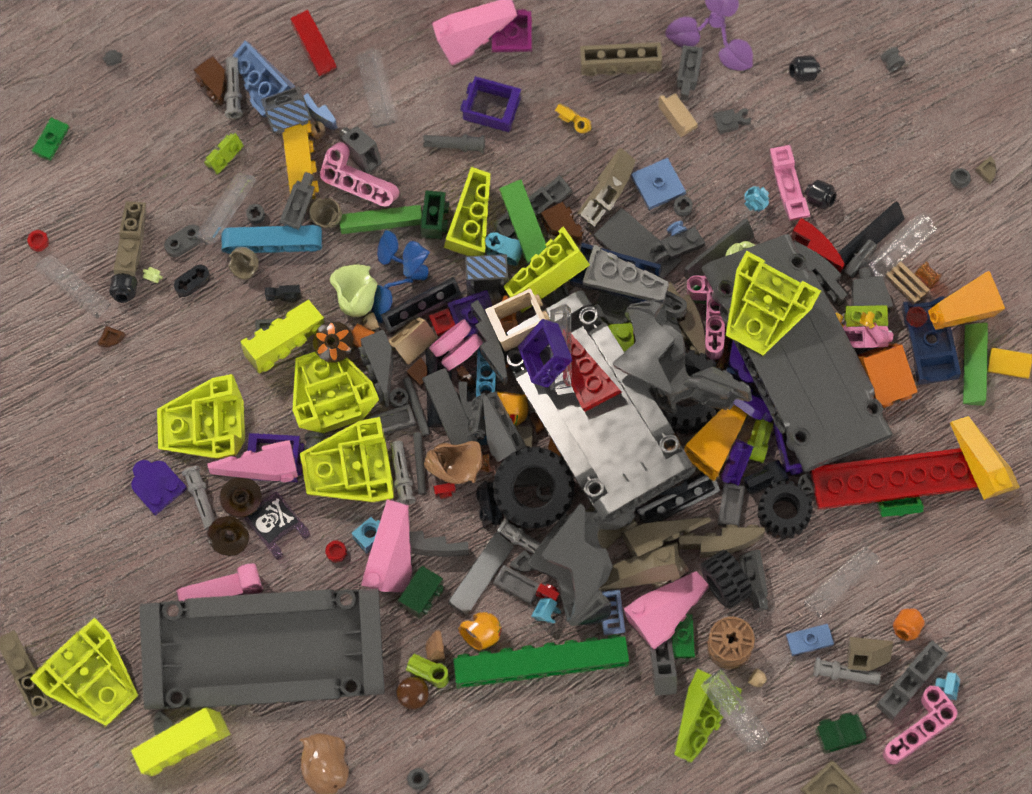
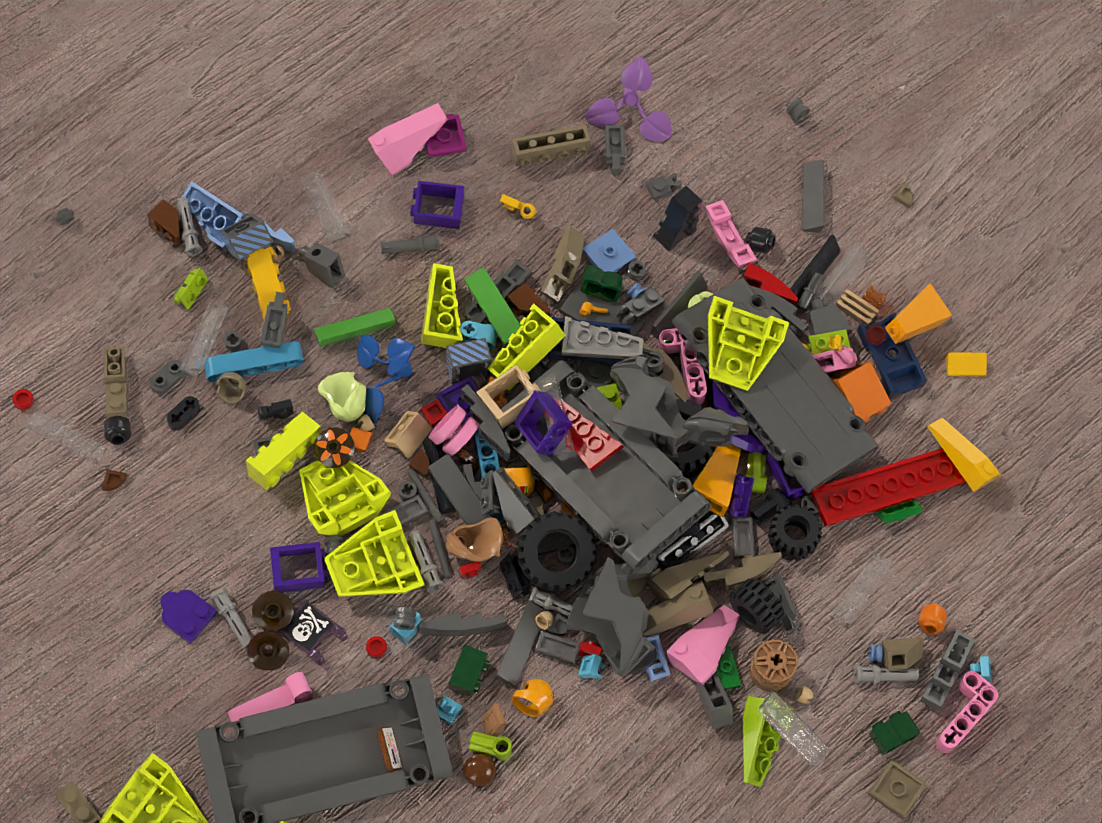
camera: 20 degrees left, 5 degrees down
(50, 139) = (17, 301): green plate -> none
(152, 275) = (143, 413): yellowish green plate -> none
(204, 420) = (222, 543): neon yellow wedge -> none
(271, 464) = (300, 572): bright pink wedge -> none
(313, 42) = (257, 173): red slope -> none
(325, 213) = (301, 328): dark tan hair -> none
(326, 655) = (389, 748): none -> slope
(360, 178) = (328, 291): bright pink beam -> none
(367, 528) = (405, 618): none -> dark grey wheel
(378, 358) = (380, 454): dark grey slope -> none
(390, 556) = (432, 643): bright pink wedge -> none
(394, 627) = (448, 710): none -> medium azure tile
(421, 304) = (410, 399): black slope -> none
(433, 214) = (405, 313): dark green brick -> none
(509, 554) = (544, 620): none -> tan hinge
(541, 661) = (596, 717): green brick -> none
(621, 238) = (587, 307): none -> light orange hand
(641, 215) = (600, 283): none -> dark green brick
(677, 114) = (612, 188): tan panel -> none
(738, 159) = (680, 220): none -> black wedge
(756, 198) = (703, 252): medium azure gear -> none
(804, 68) = (720, 130): black head -> none
(809, 639) = (844, 650): medium blue plate -> none
(840, 649) = (875, 653): none -> medium blue bush
(887, 155) = (813, 196): none -> dark grey slope
(960, 178) = (882, 206): dark grey plate -> none
(975, 364) = (936, 370): bright green slope -> none

